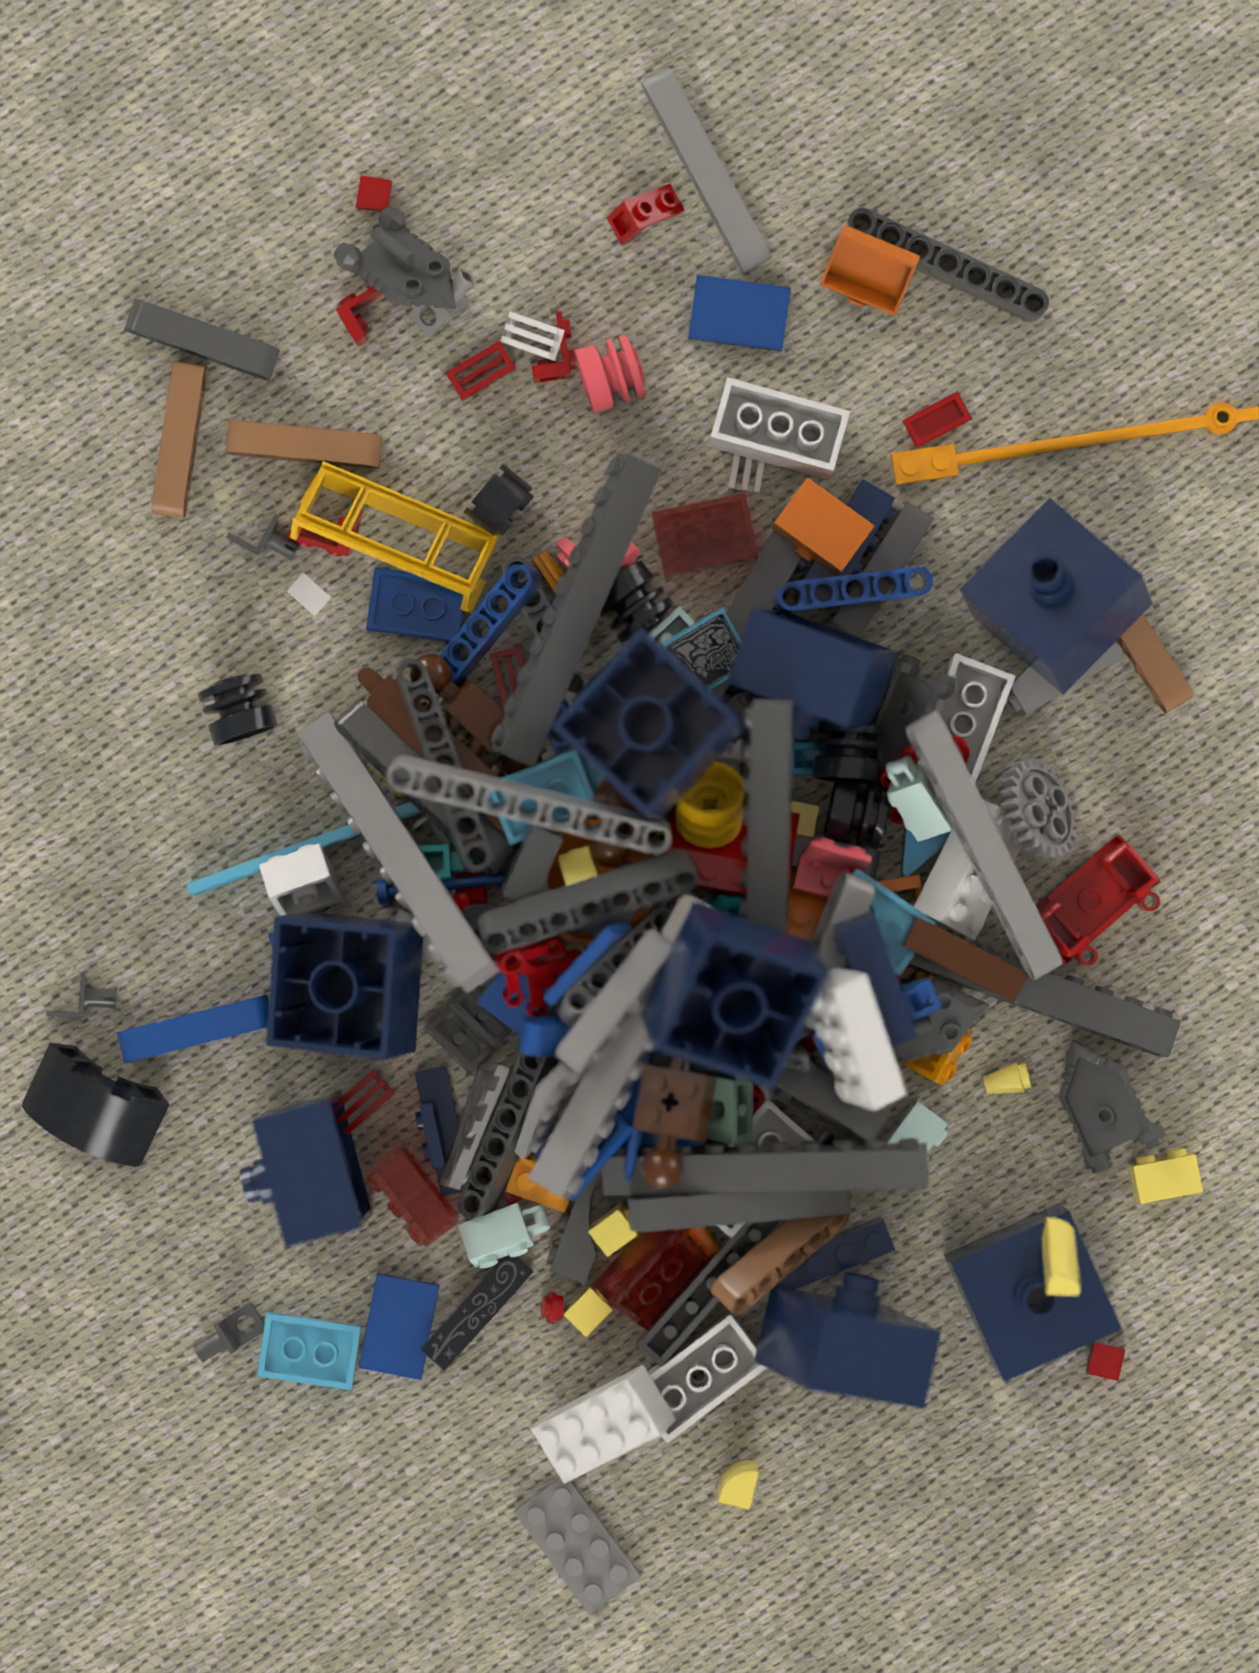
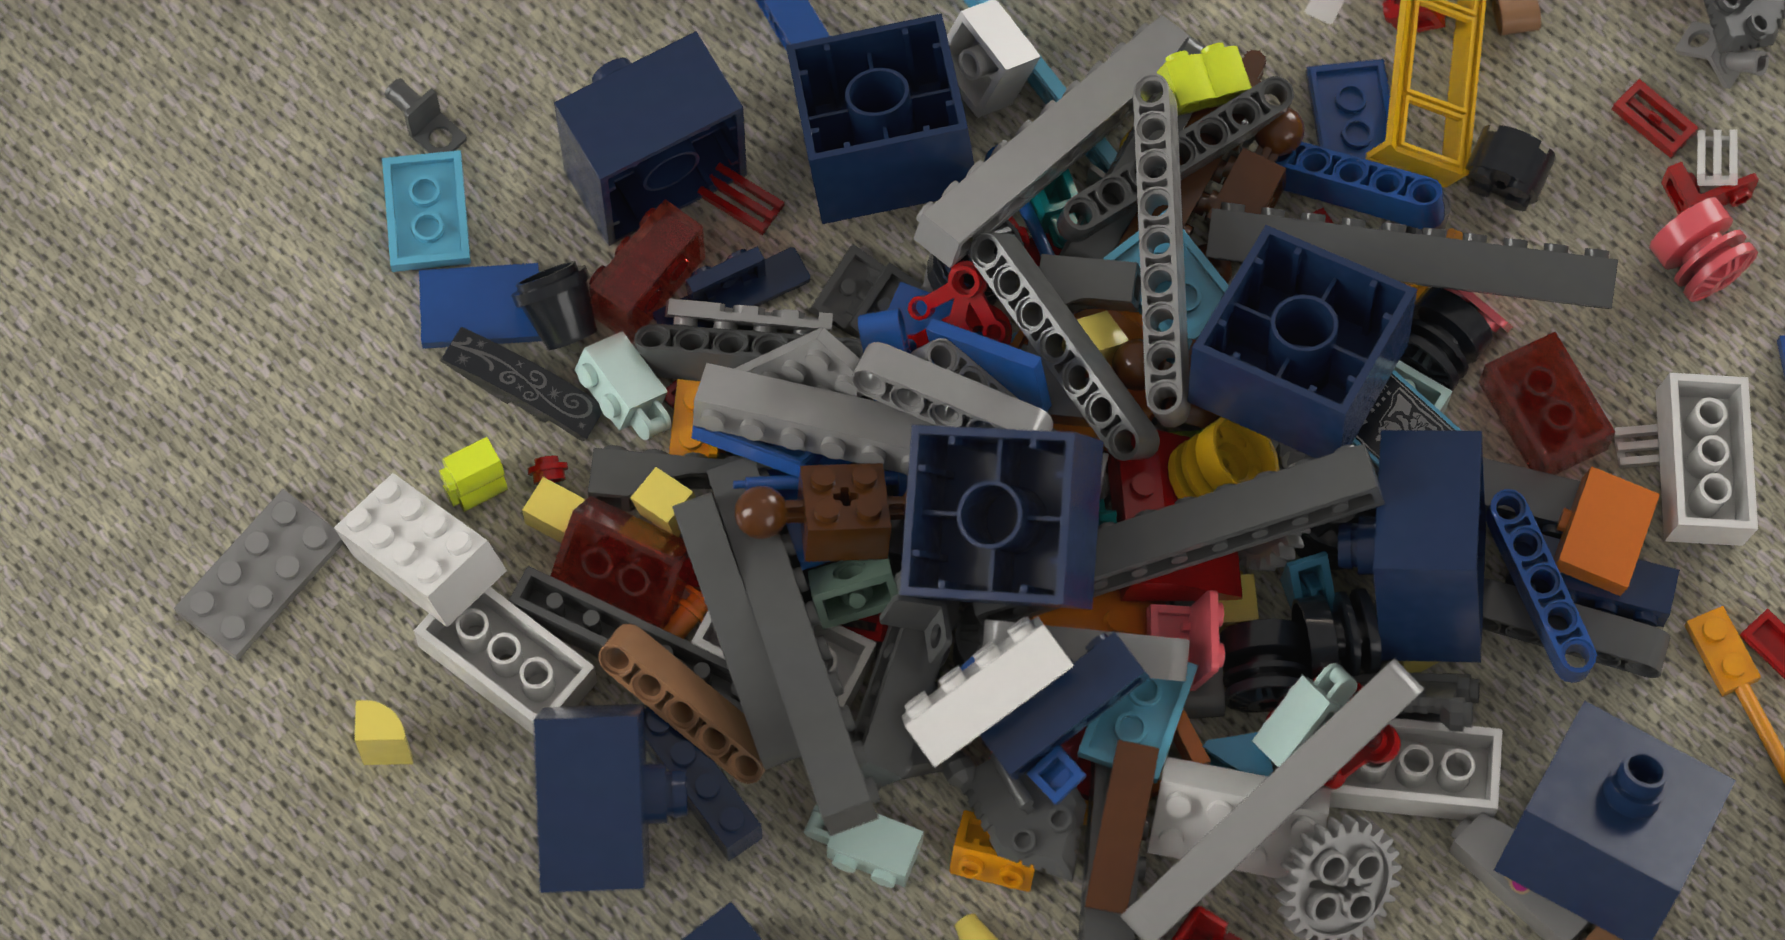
camera: 70 degrees right, 20 degrees down
(382, 724) = (1205, 78): none -> neon yellow brick
(422, 1271) = (558, 304): none -> black piece
(548, 1368) = (473, 475): none -> neon yellow brick

